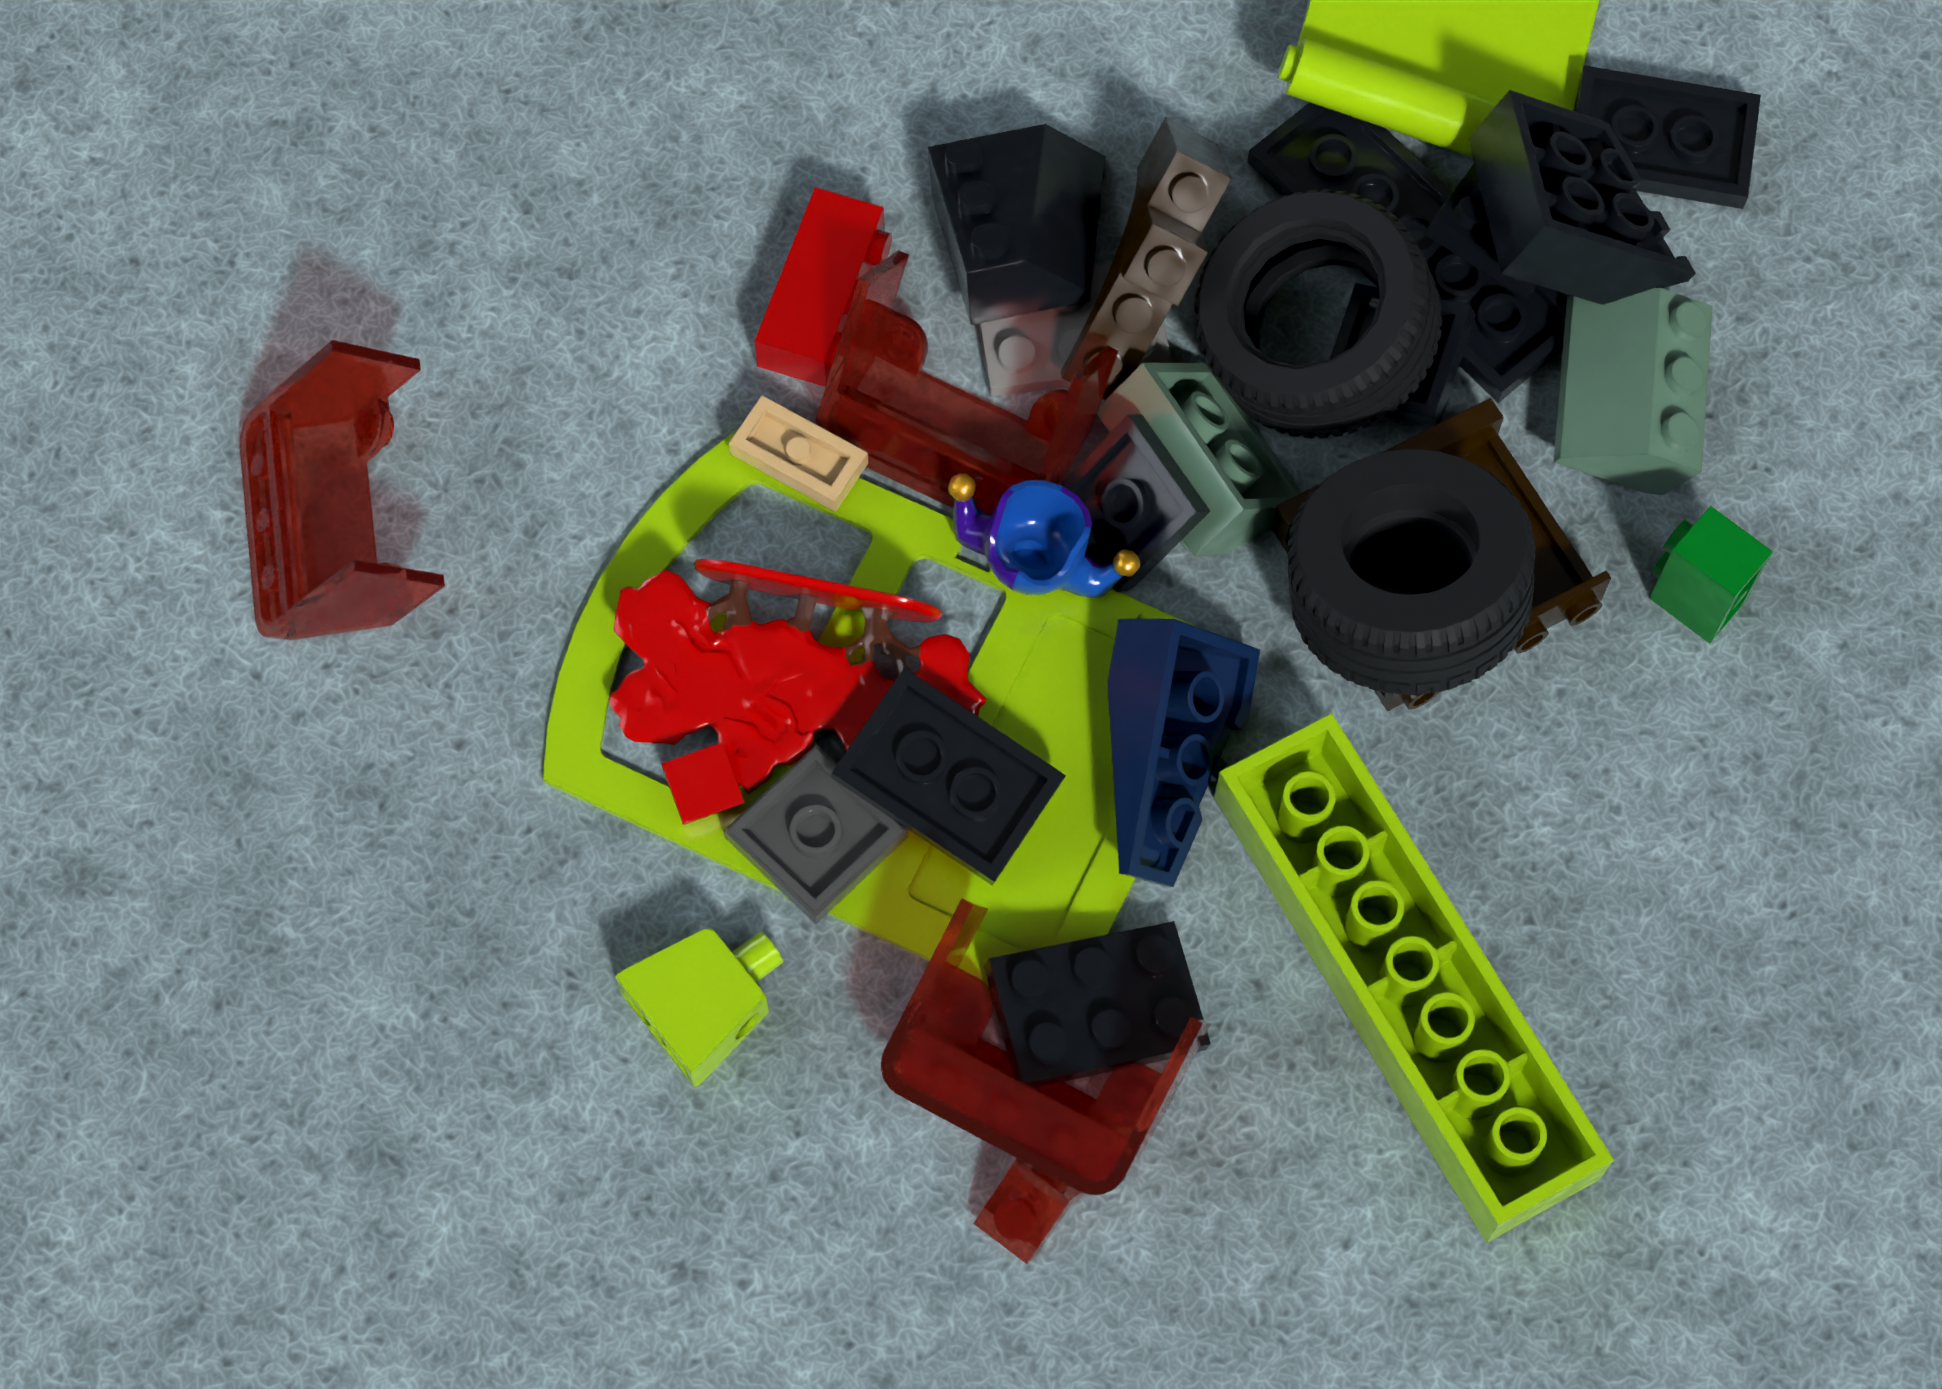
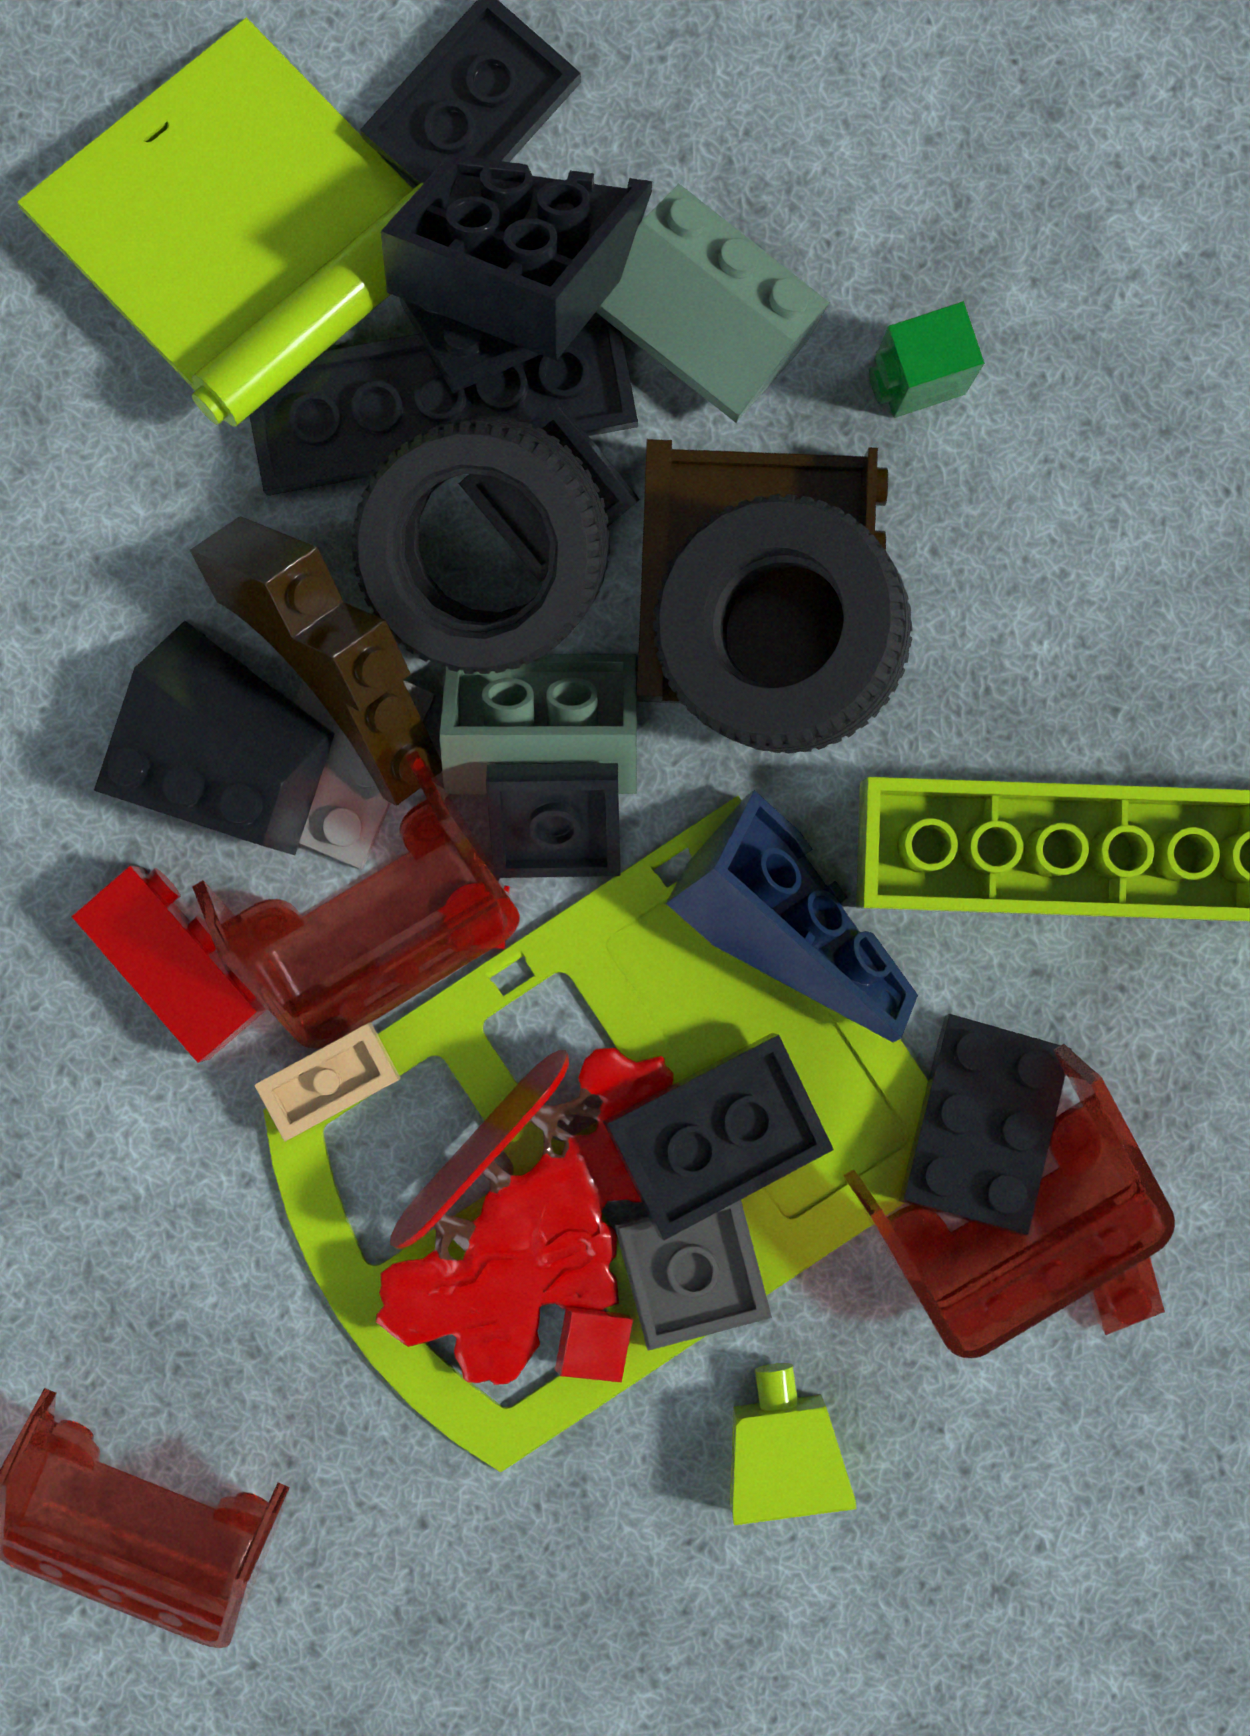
camera: 55 degrees left, 20 degrees up
(1036, 539) = (544, 927): blue piece -> none

